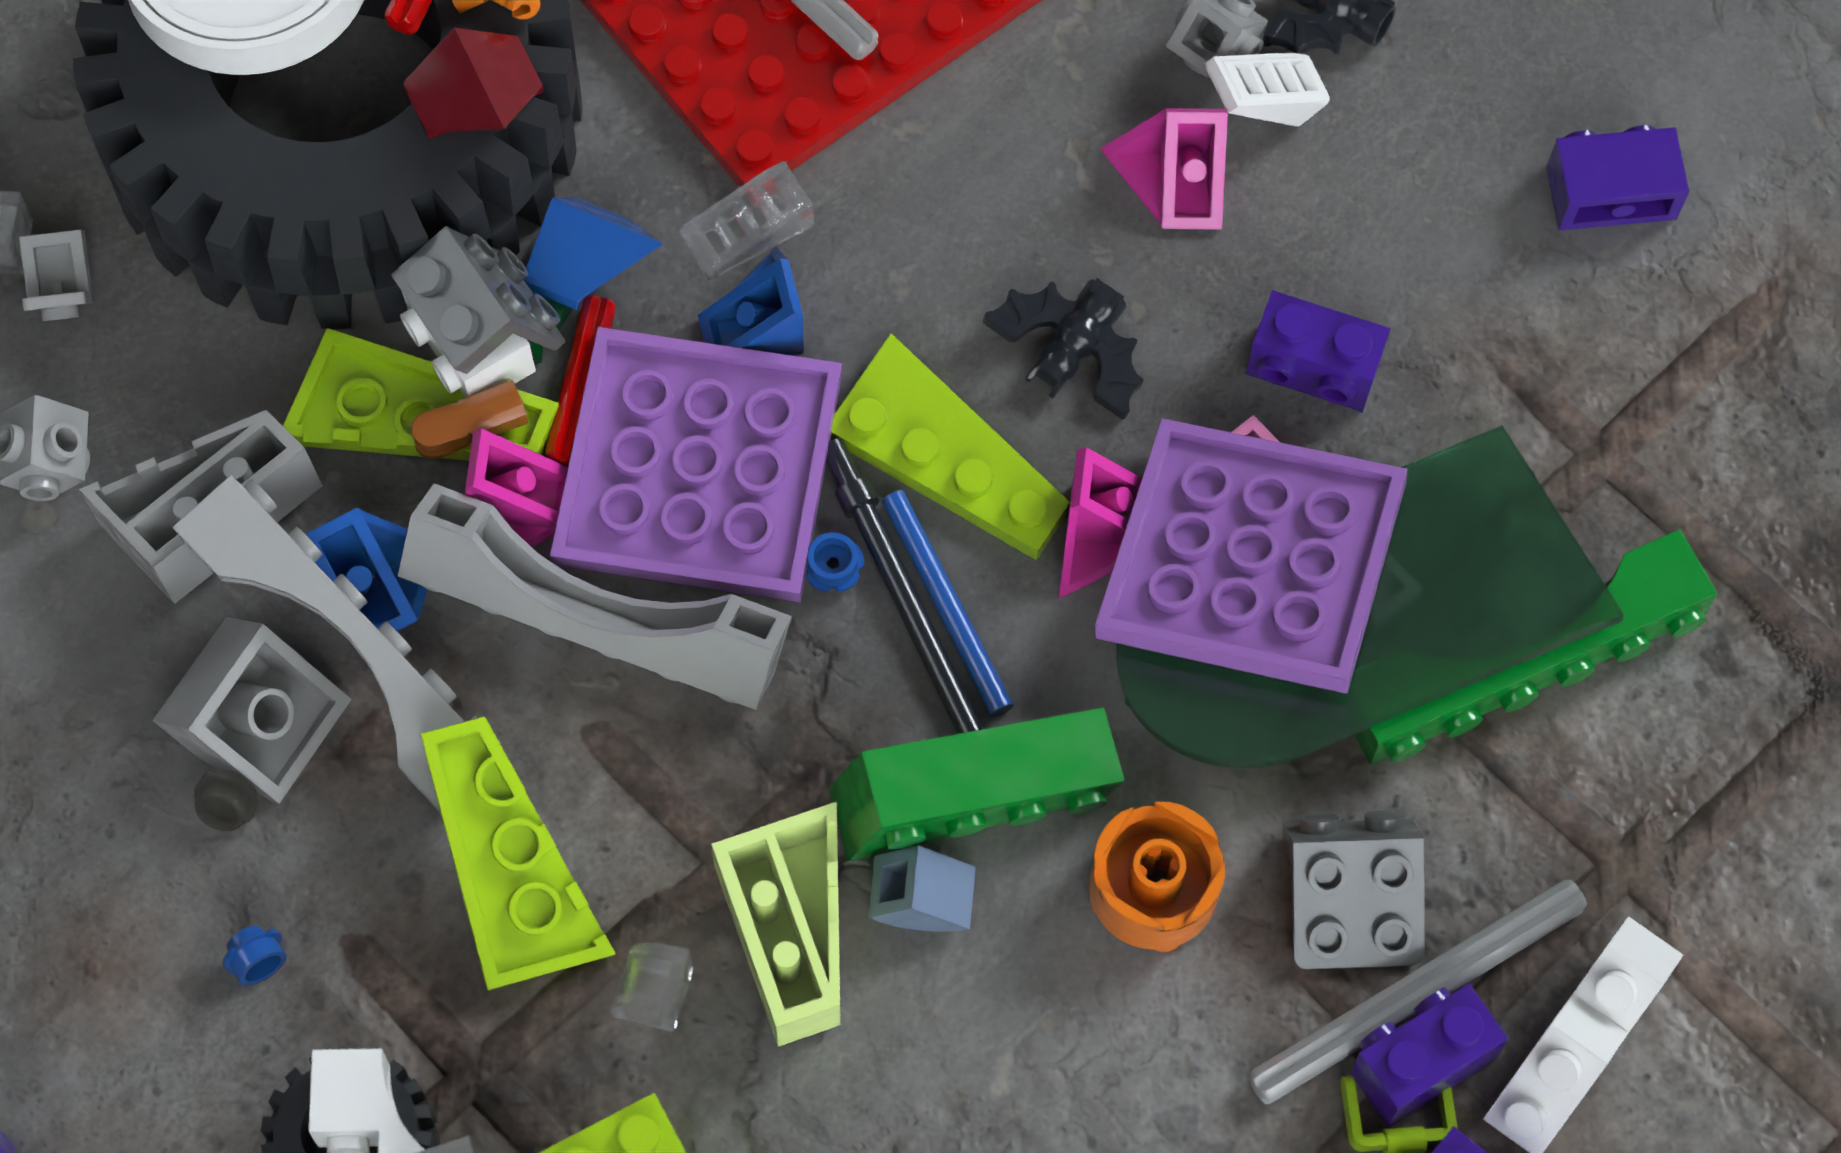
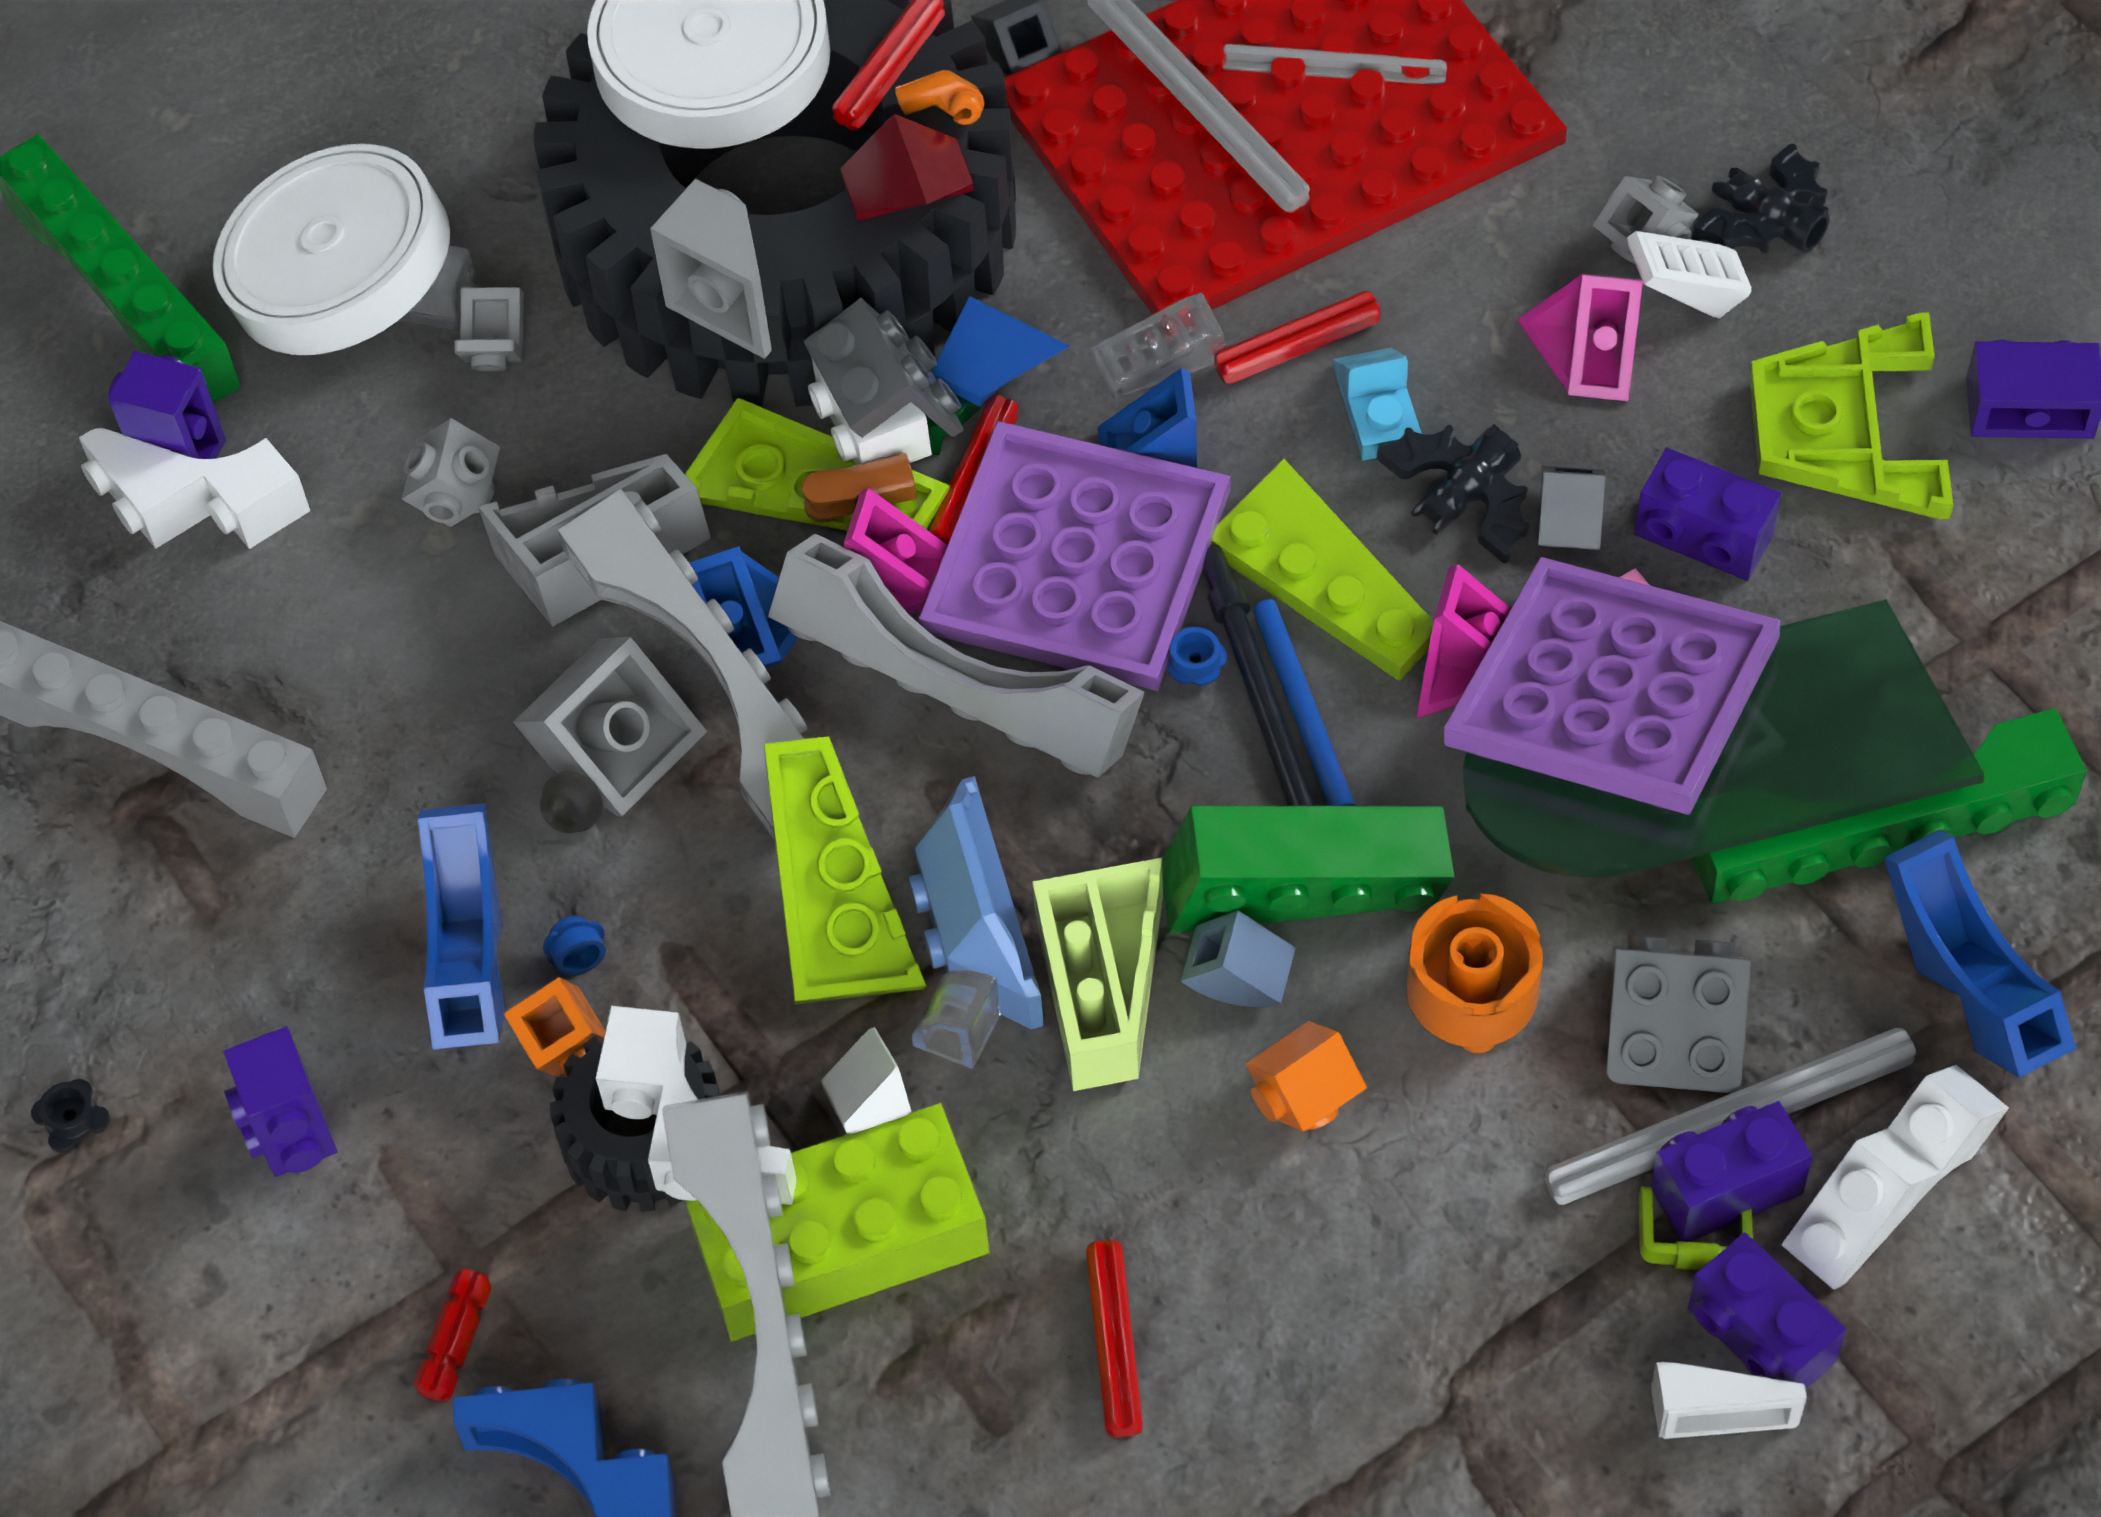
camera: 15 degrees right, 10 degrees down
(138, 961) = (462, 928): none -> blue arch
(254, 1056) = (554, 1025): none -> orange brick
(290, 220) = (712, 266): none -> light grey slope
(574, 1079) = (866, 1085): none -> white slope
(650, 865) = (972, 906): none -> medium blue wedge
(884, 194) = (1297, 337): none -> red axle
(974, 254) = (1376, 398): none -> medium azure slope
(1005, 1010) = (1305, 1077): none -> orange brick
(1183, 355) = (1571, 507): none -> brick
(1414, 233) = (1821, 419): none -> lime wing
(1615, 789) = (1954, 942): none -> blue arch

